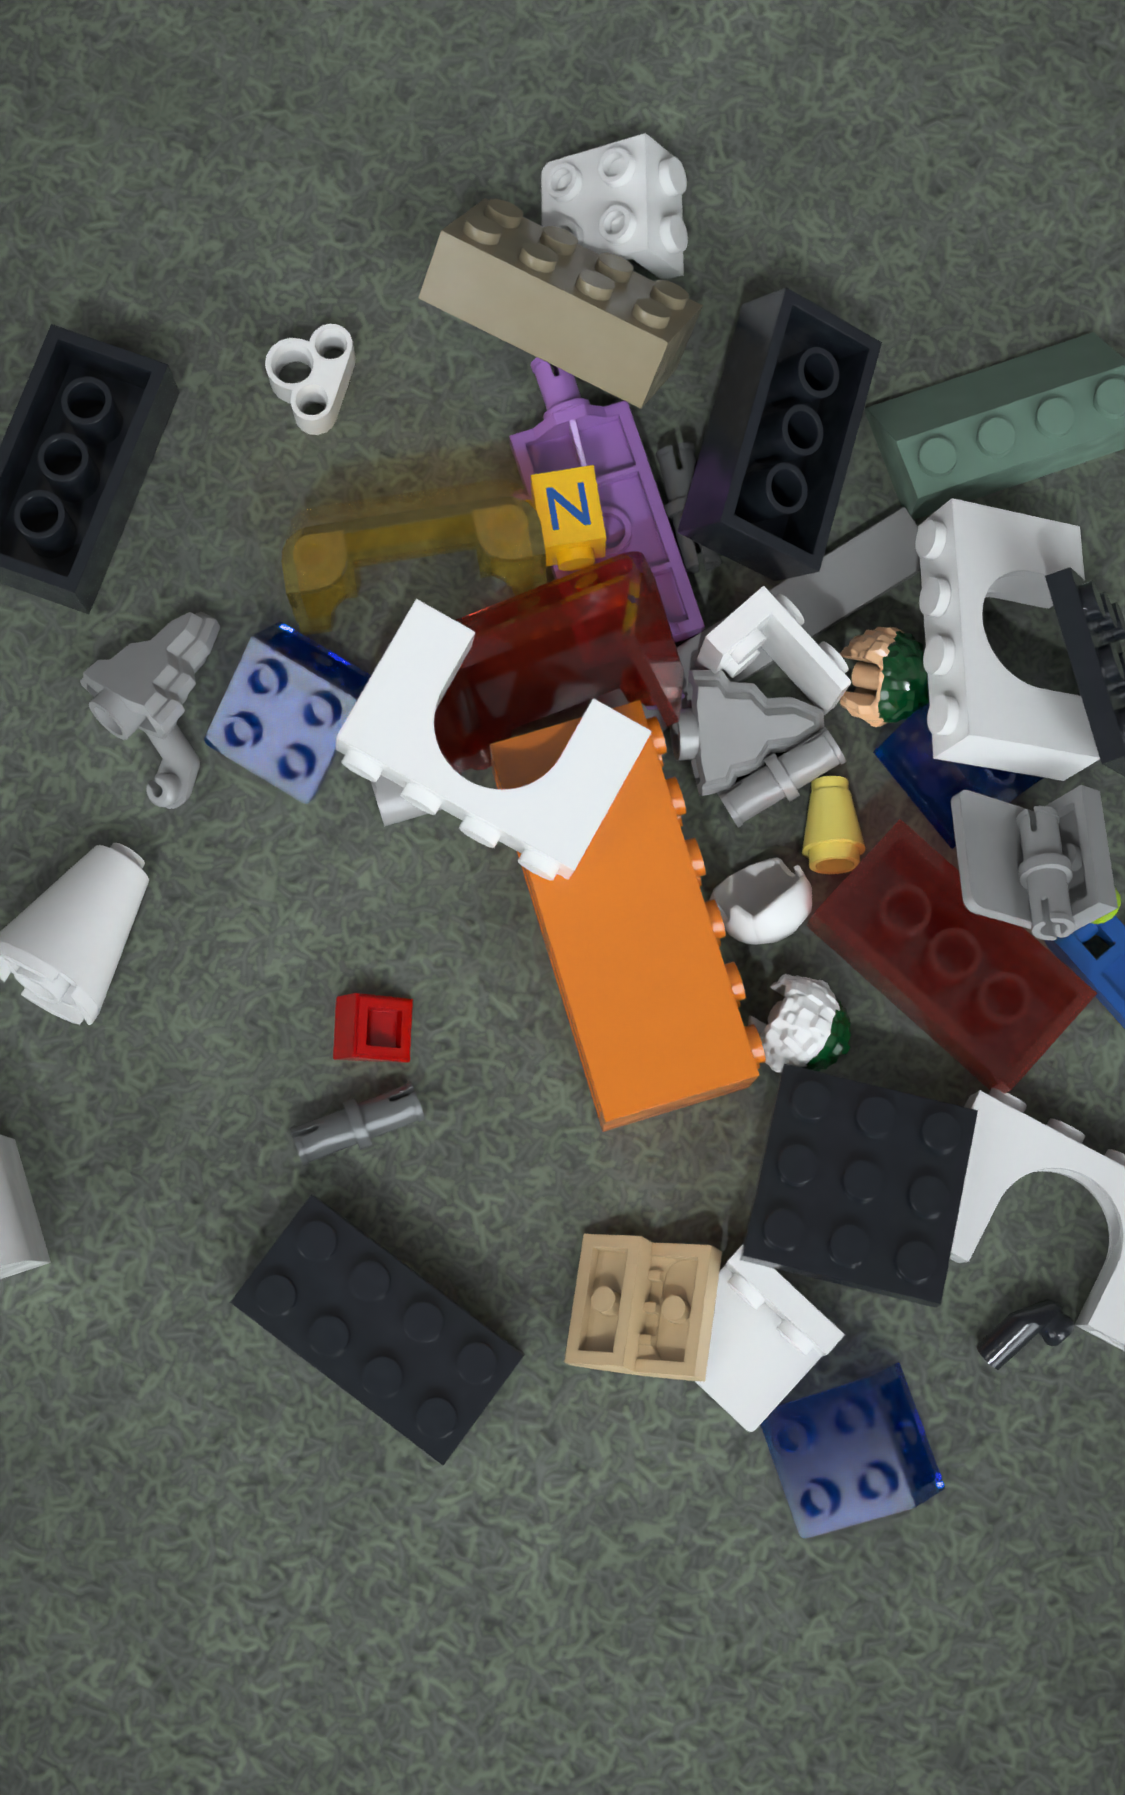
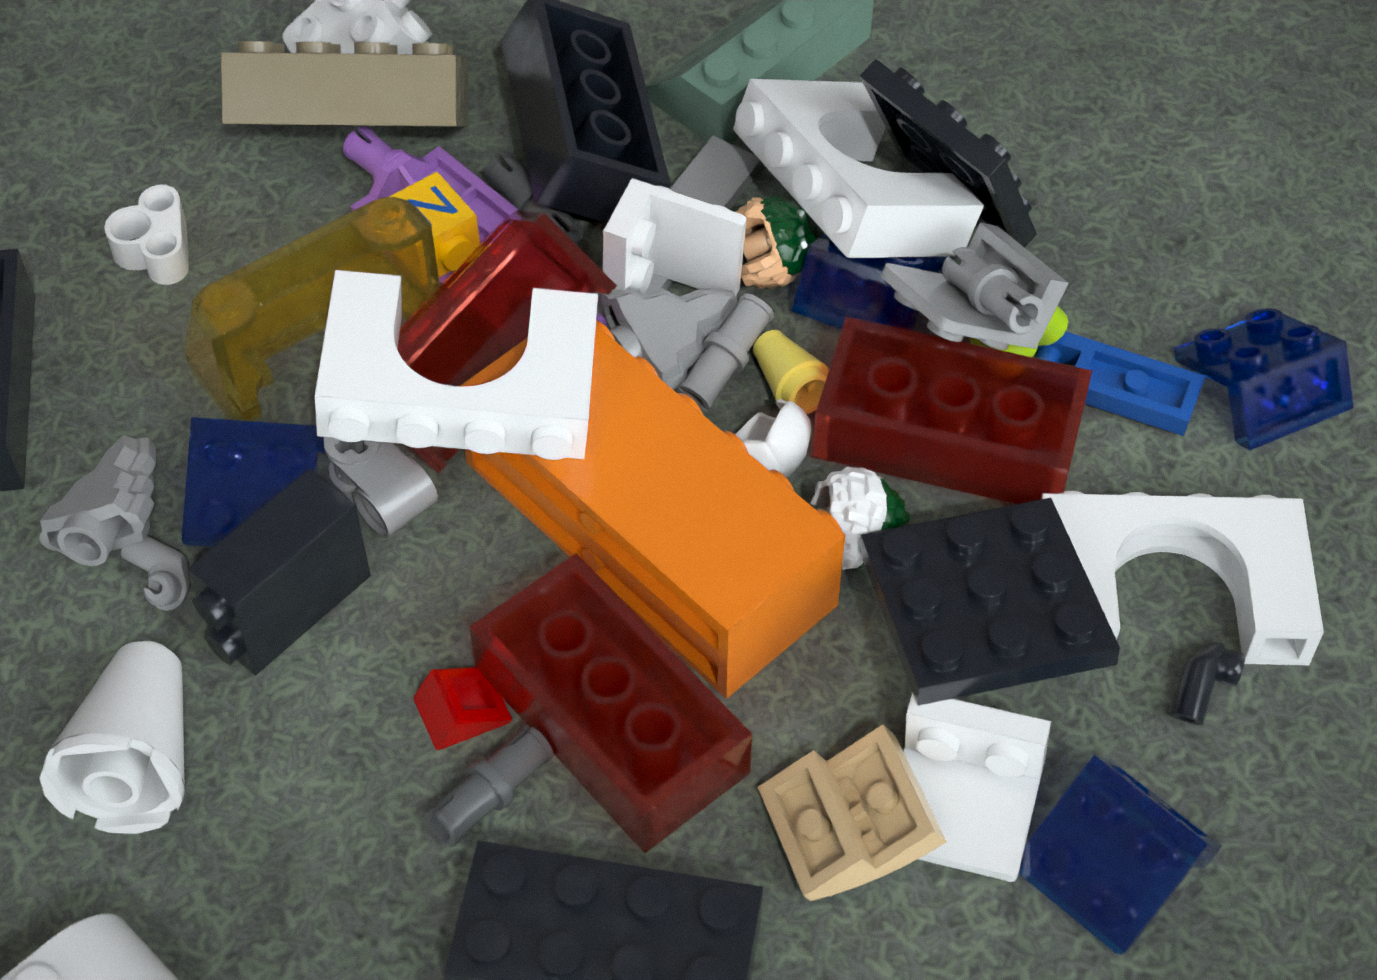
camera: 25 degrees left, 25 degrees down
(260, 840) = (280, 572): none -> black brick
(490, 1103) = (612, 701): none -> clear red brick

